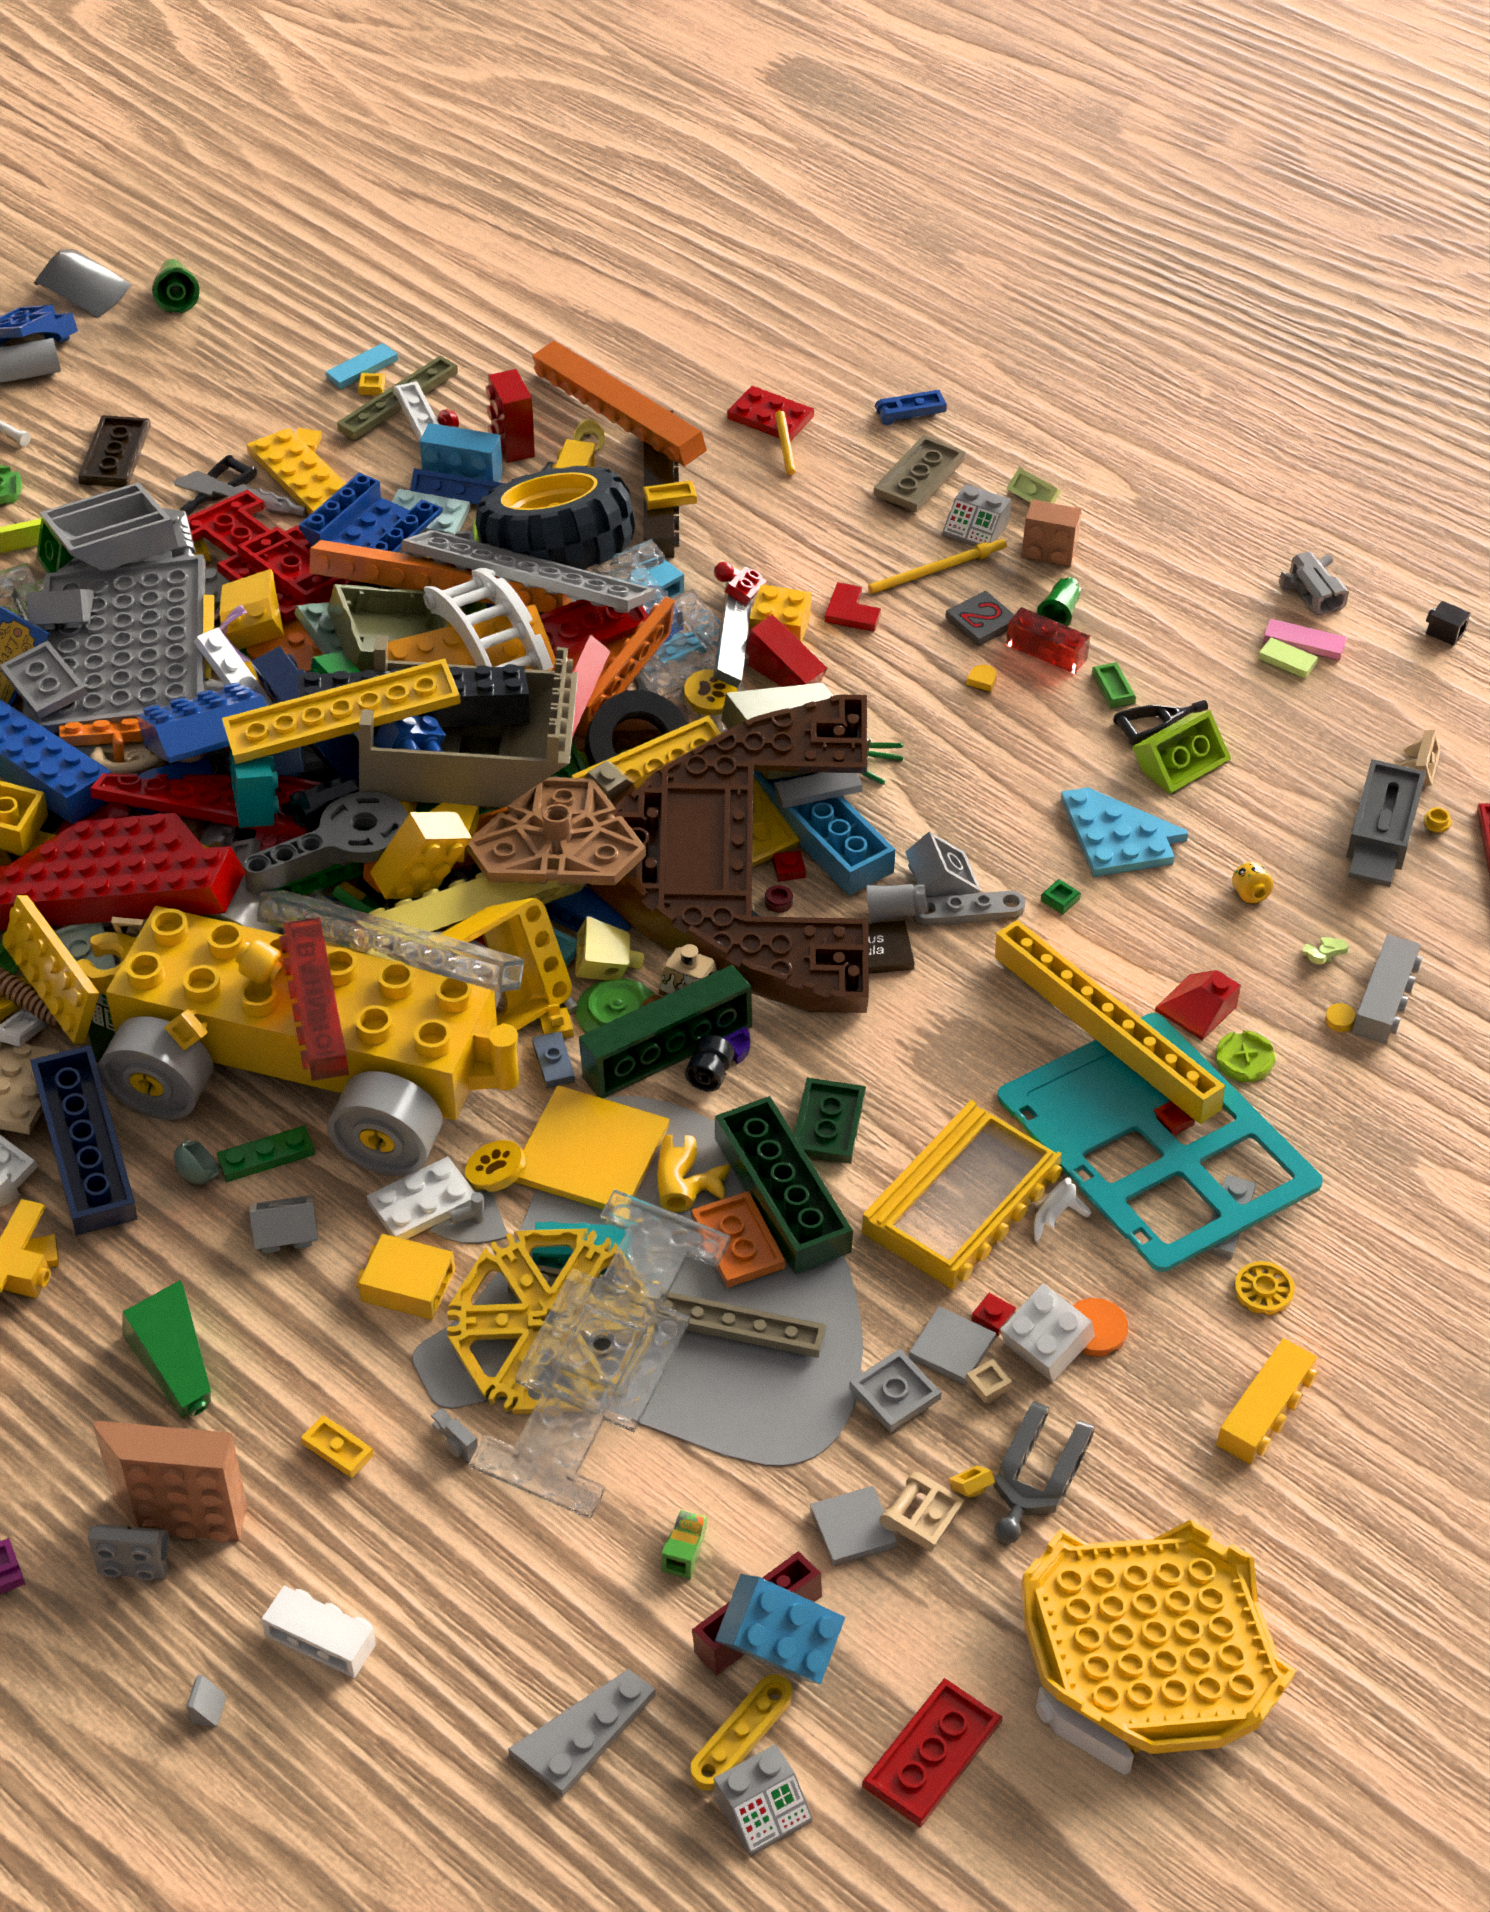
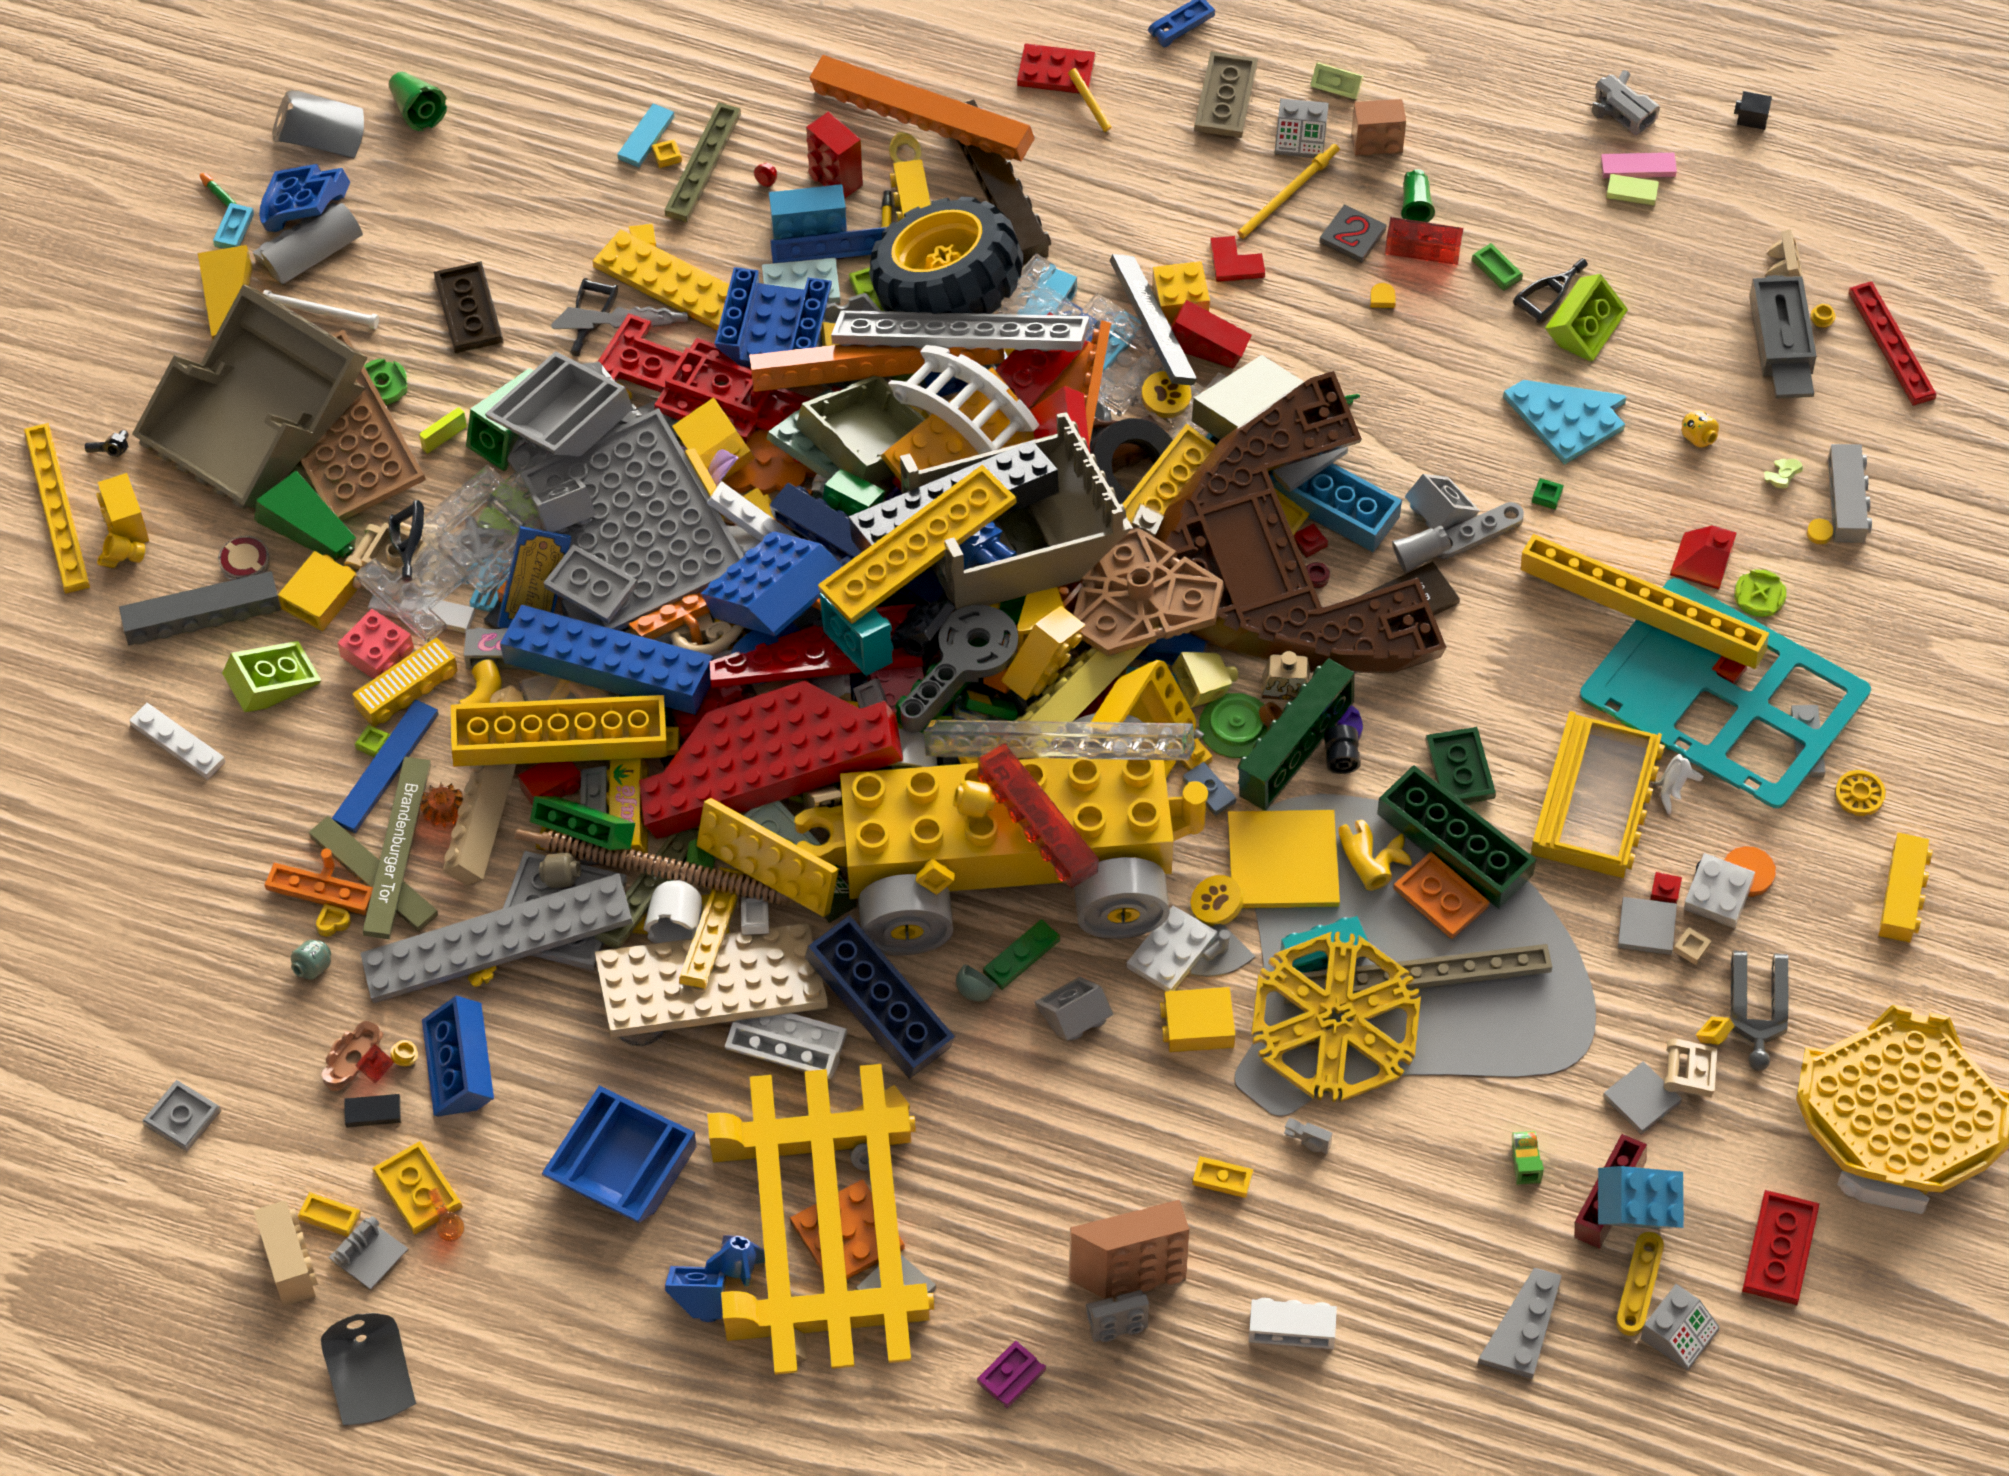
camera: 20 degrees left, 10 degrees up
(168, 1347) = (1053, 1148): green slope -> none
(205, 1702) = (1237, 1408): light grey slope -> none
(415, 407) = (738, 178): white tile -> none
(583, 1382) = (1399, 1058): clear piece -> none
(669, 495) = (1022, 196): yellow tile -> none
(741, 586) = (1136, 269): red plate -> none
(895, 1390) = (1623, 978): light grey plate -> none

